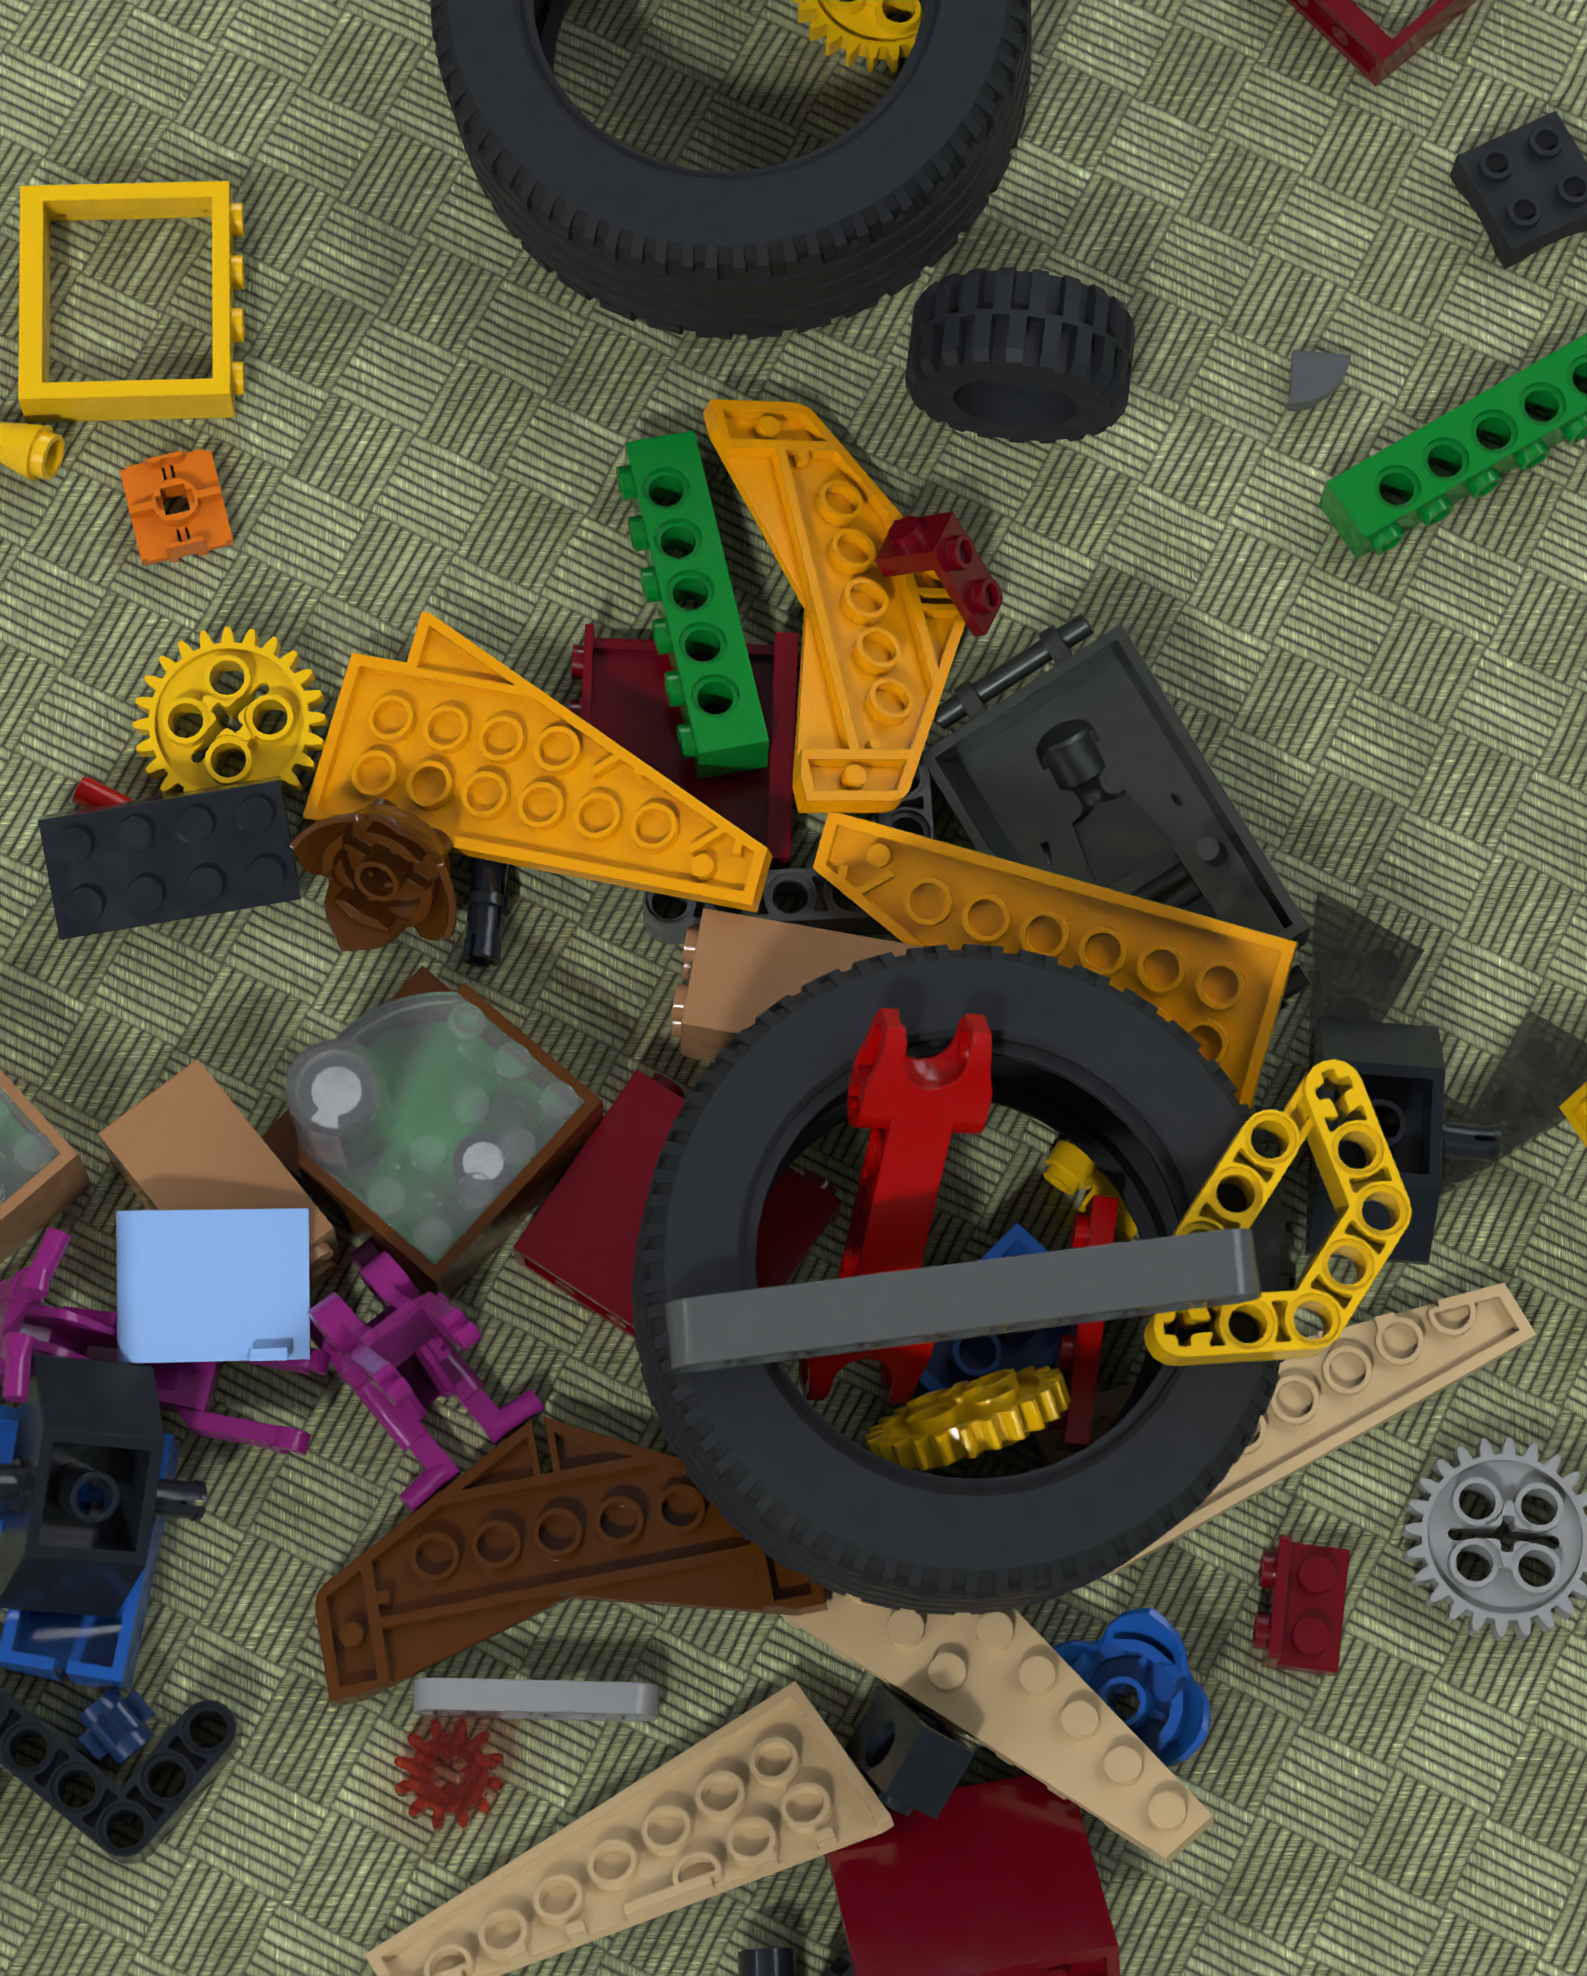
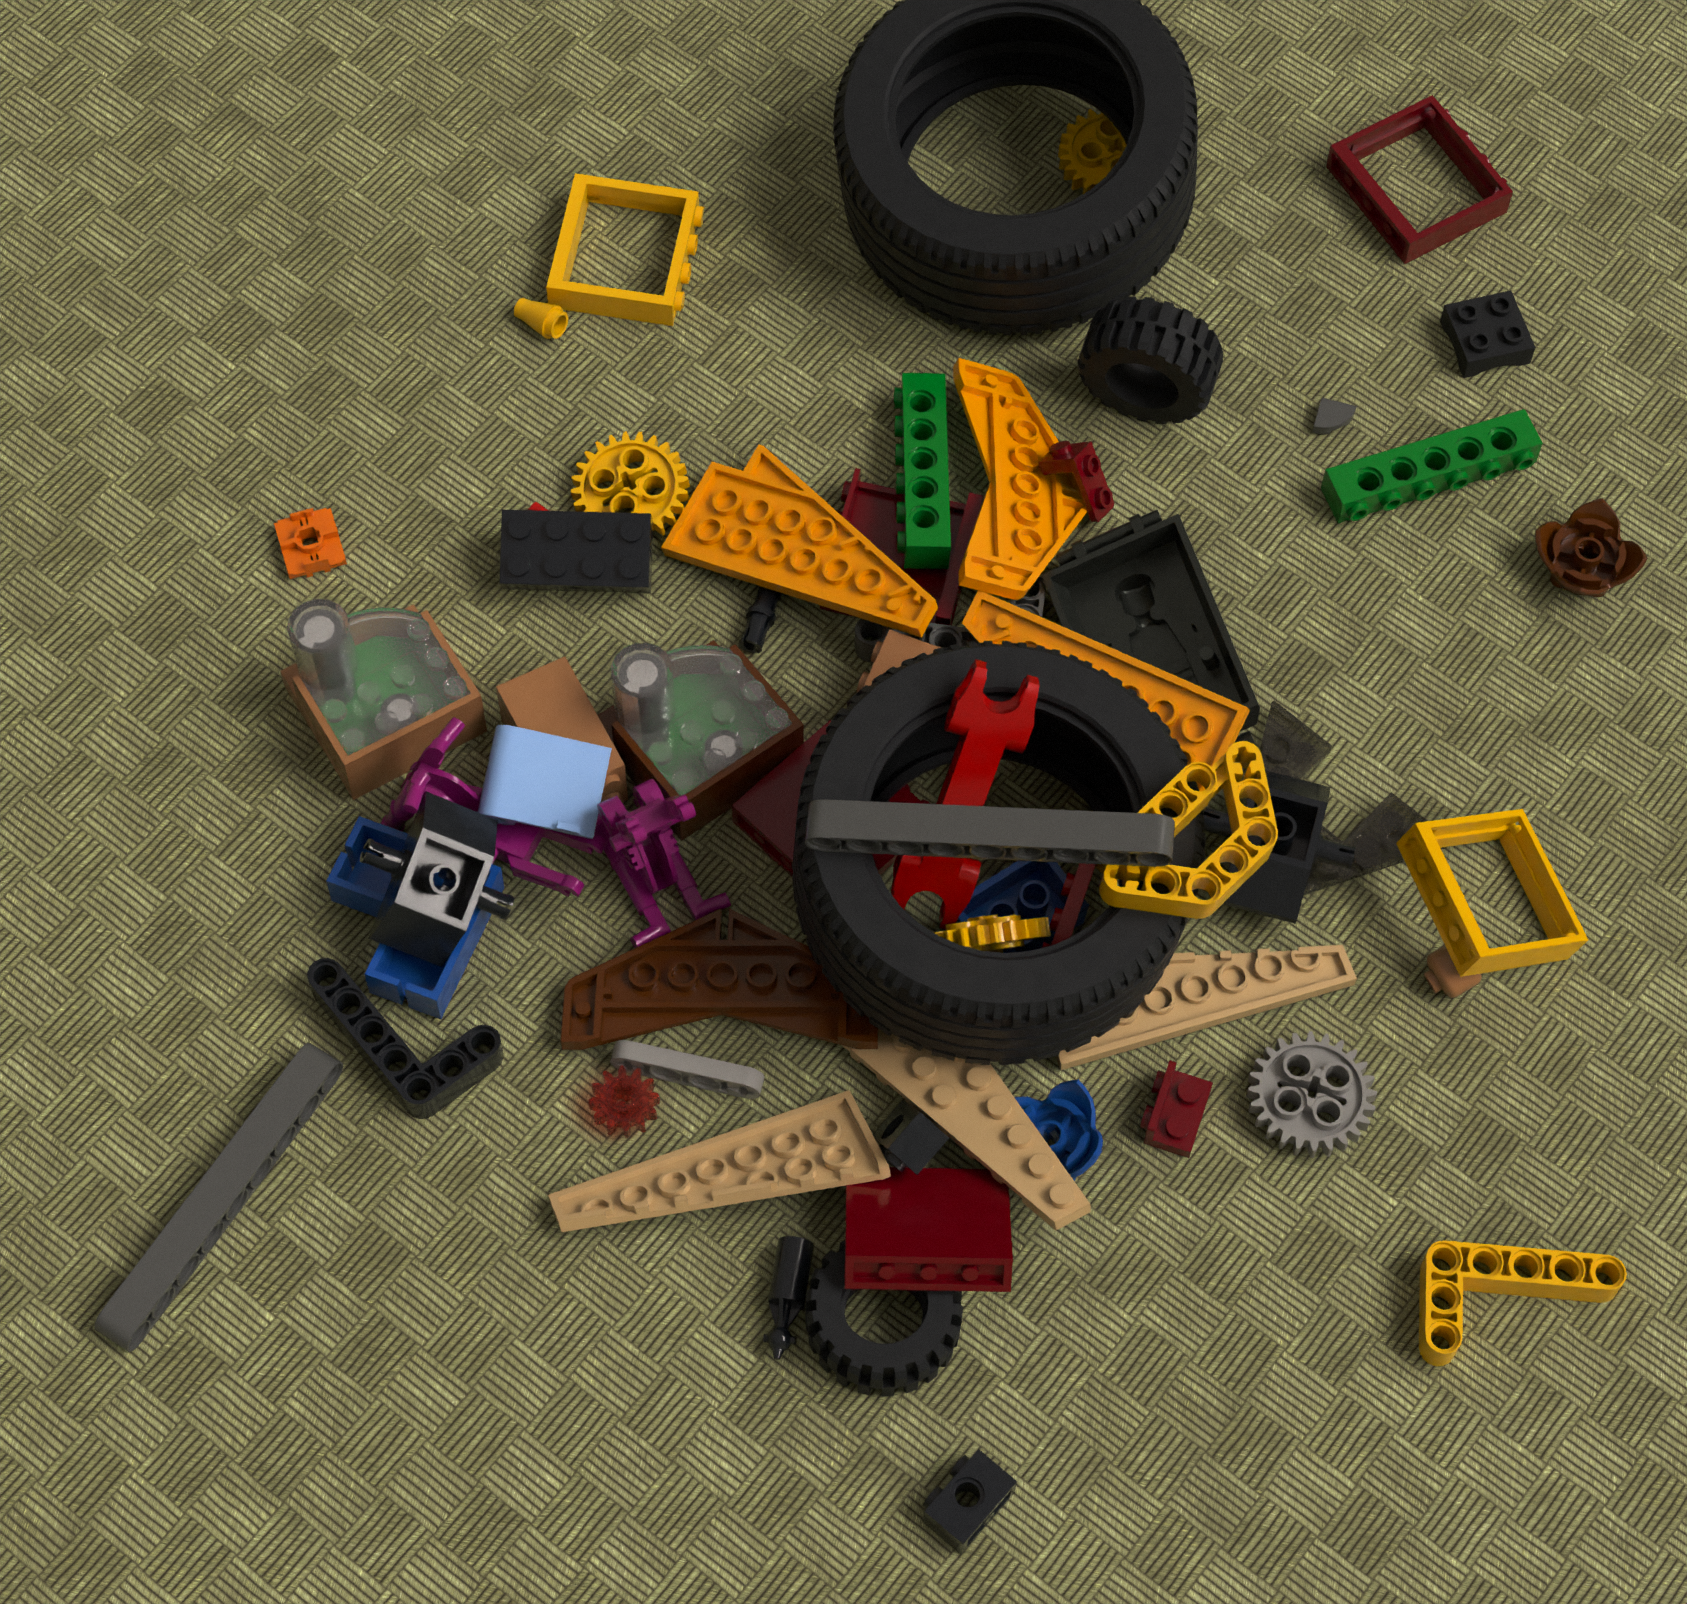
camera: 15 degrees right, 10 degrees down
(116, 1726) = (428, 1032): dark blue gear -> none
(158, 532) = (626, 380): orange piece -> none
(382, 875) = (702, 583): reddish brown brick -> none

